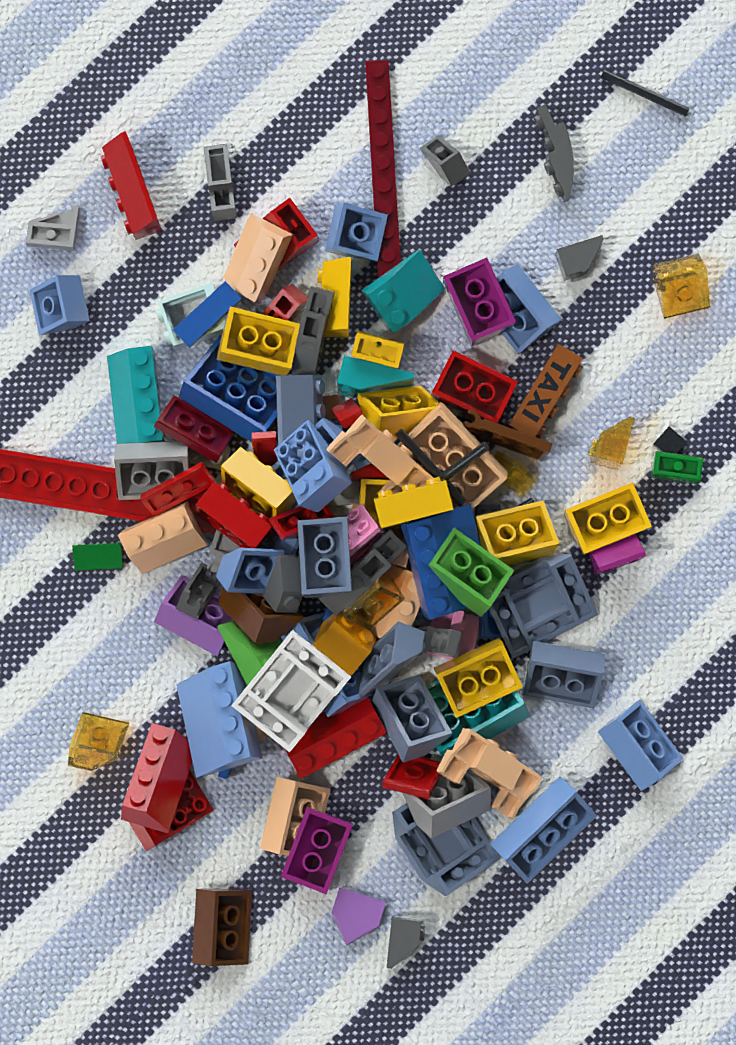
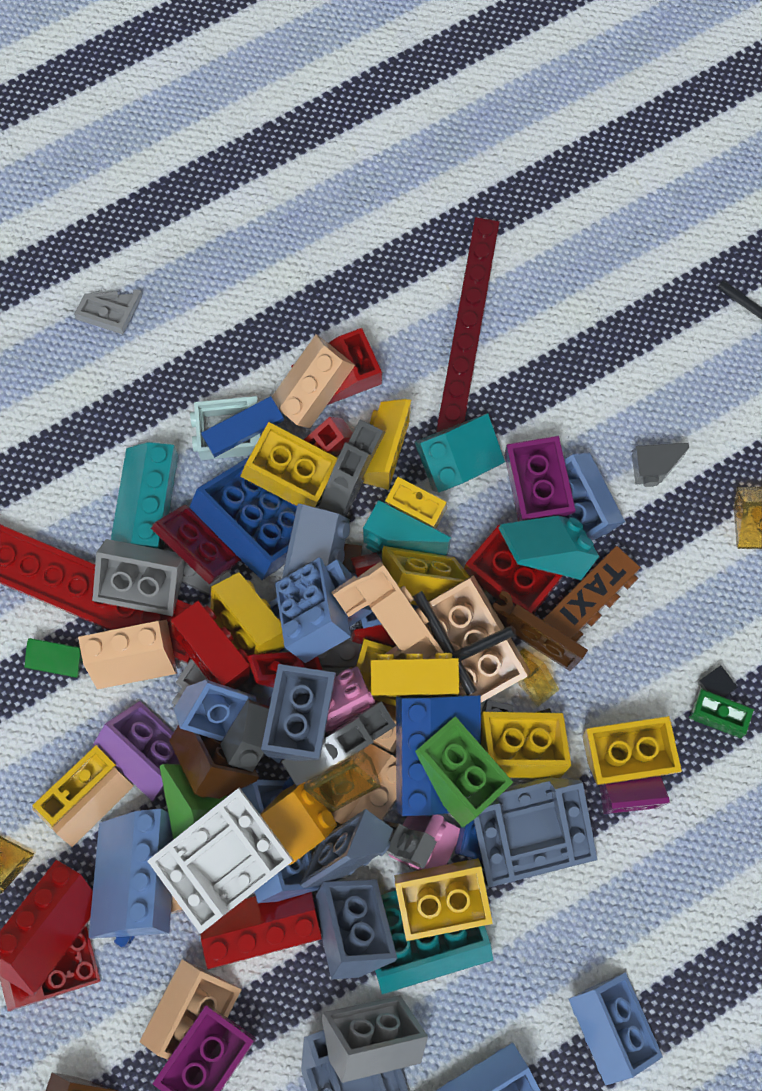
camera: 10 degrees right, 10 degrees down
(59, 304) = (91, 383): medium blue slope -> none
(131, 187) = (199, 283): red slope -> none
(148, 660) = (73, 786): none -> yellow slope
(168, 673) = (93, 807): none -> light nougat tile
(177, 489) = (157, 602): red plate -> none
(197, 592) = (149, 723): dark grey hinge -> none
(220, 182) = (293, 301): dark grey slope -> none
(264, 446) = (264, 579): red tile -> none
(356, 232) = (424, 380): medium blue slope -> none
(413, 777) = (341, 1000): red tile -> none
(445, 160) = (536, 332): dark grey slope -> none
(493, 765) = (438, 1010): light nougat bracket -> none
(501, 358) = (551, 545): none -> teal slope
(560, 161) = (659, 350): dark grey slope -> none
(564, 674) = (543, 920): sand blue slope -> none
(611, 445) = (653, 669): clear yellow slope -> none

